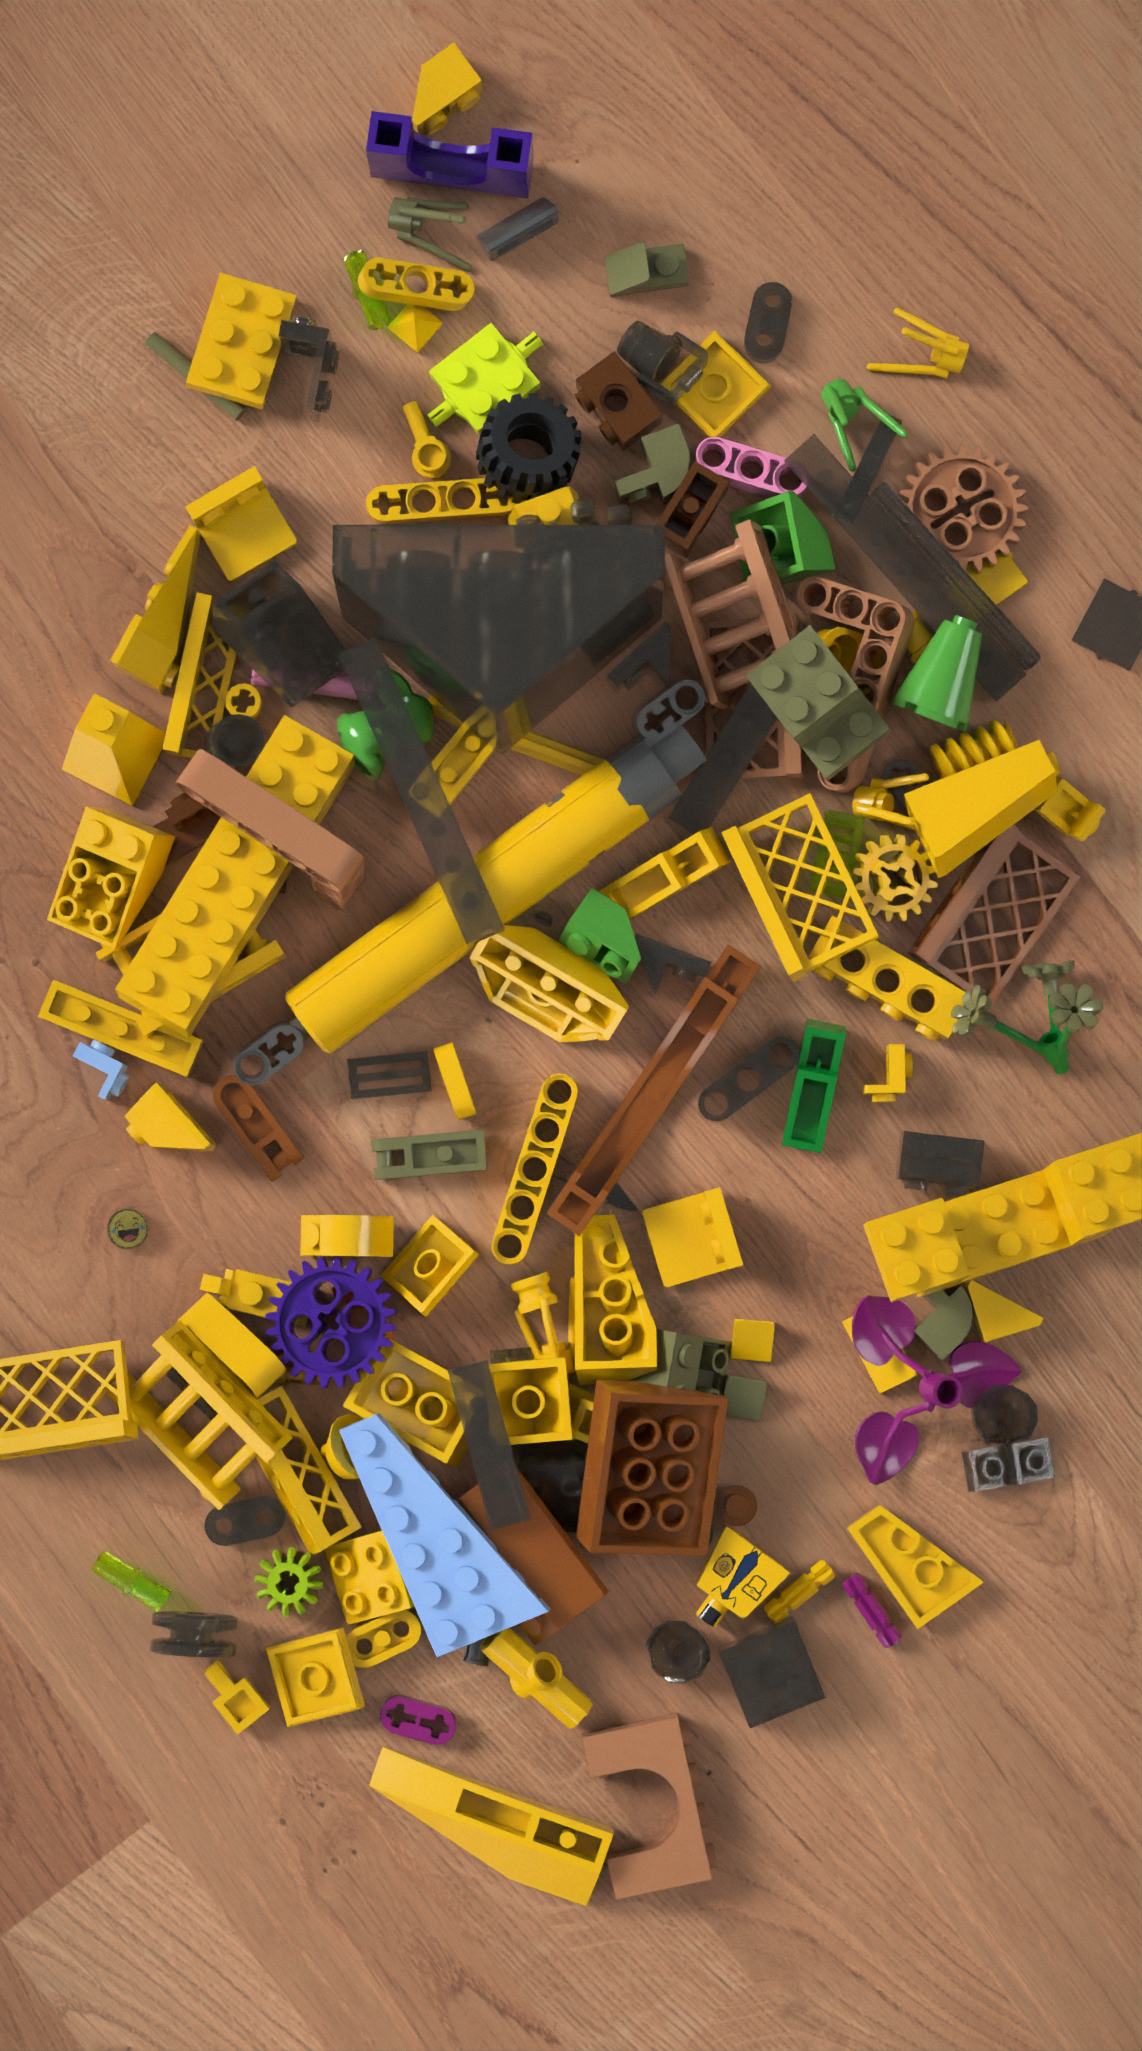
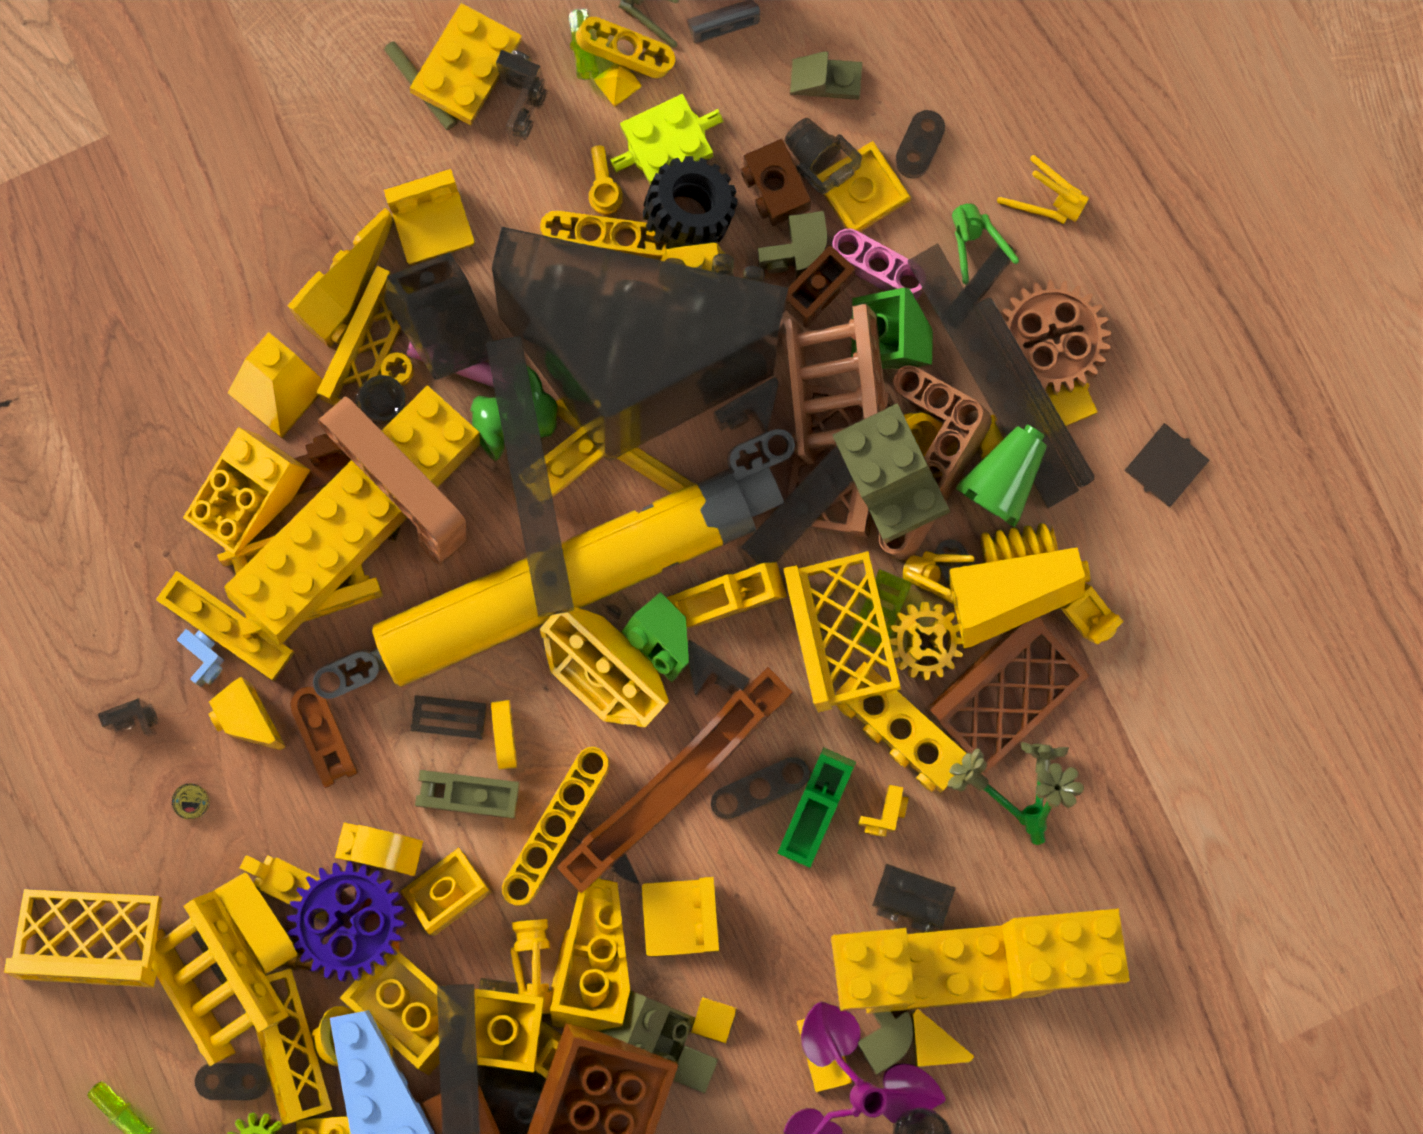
camera: 10 degrees right, 5 degrees down
(33, 1152) = (123, 717): none -> clear smoke bracket

